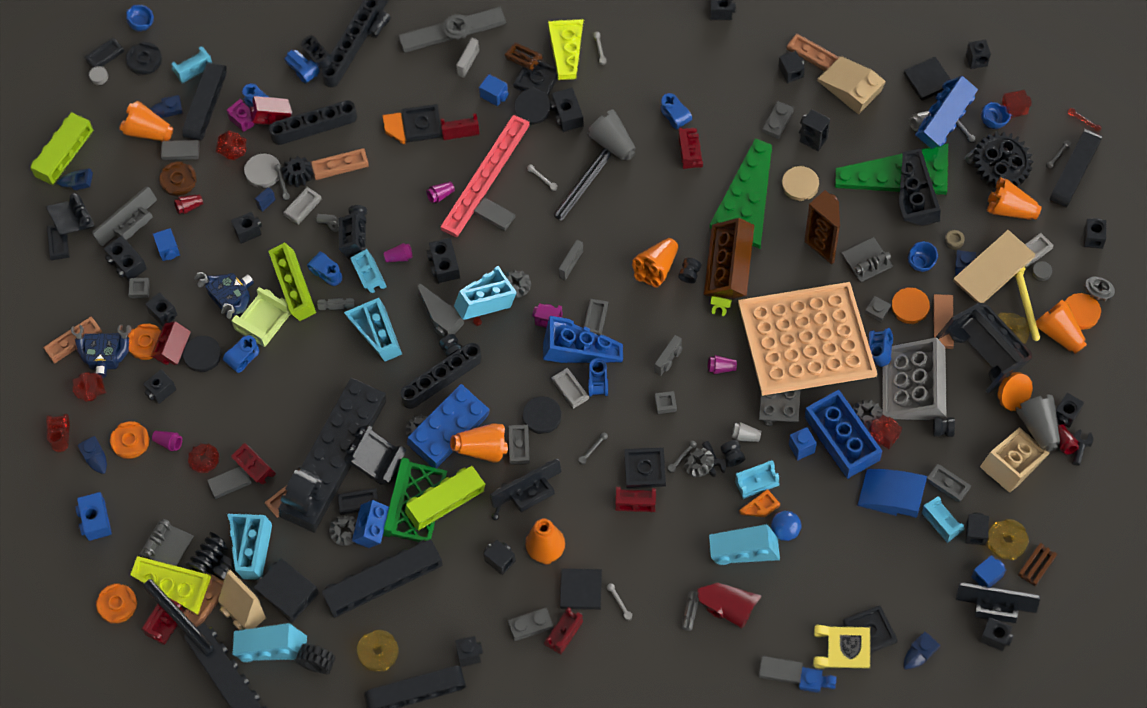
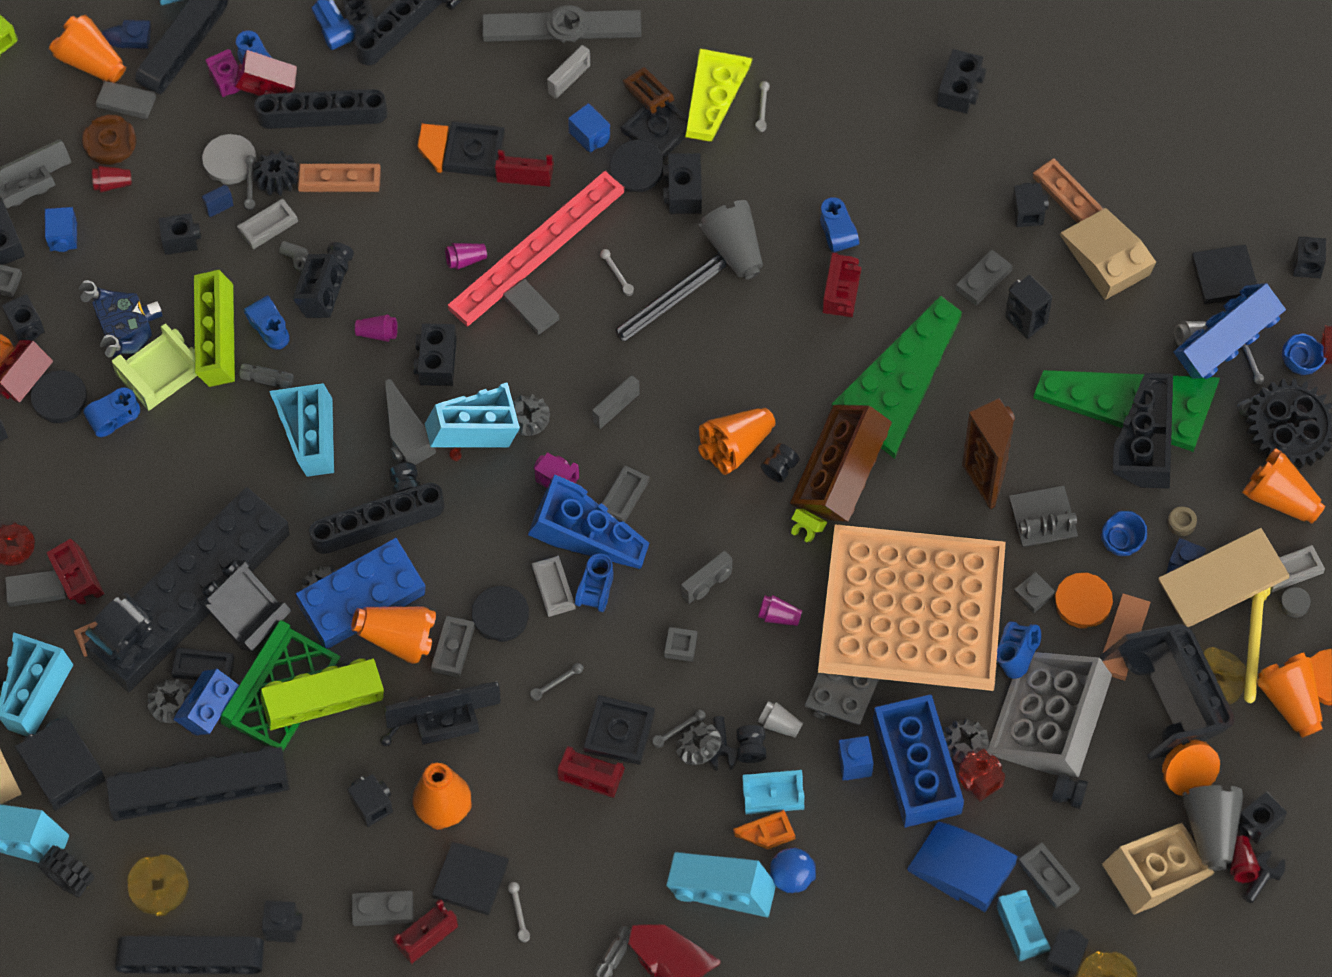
camera: 15 degrees right, 0 degrees up
(231, 145) = (196, 112): clear red brick -> none
(368, 271) = (325, 341): medium azure hinge -> none
(800, 183) = (984, 378): tan tile -> none

